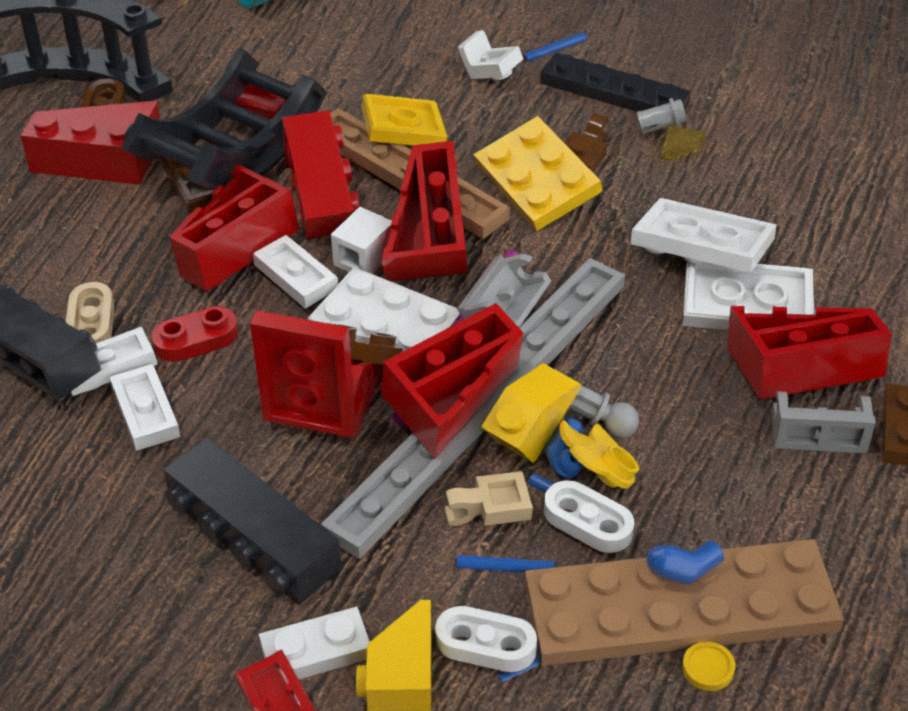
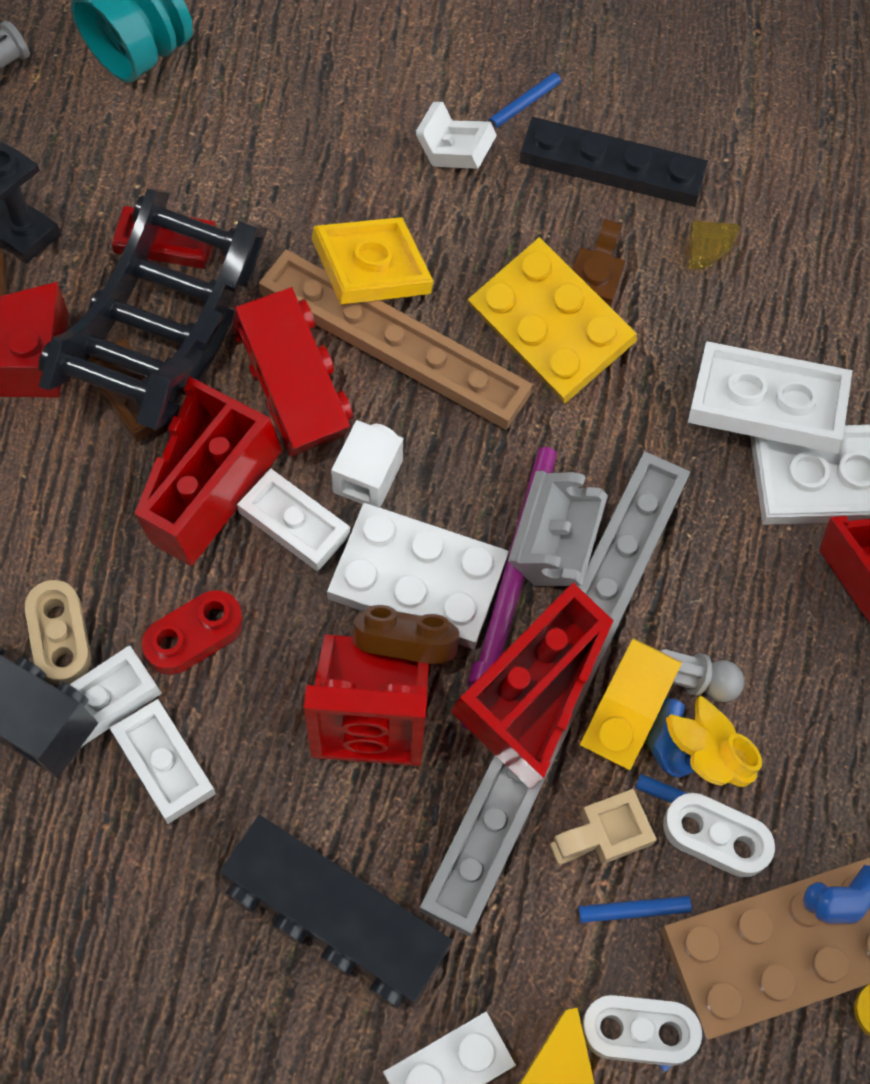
camera: 15 degrees left, 20 degrees up
(428, 220) = (448, 424): red wedge -> none
(662, 116) = (683, 208): light grey pin -> none

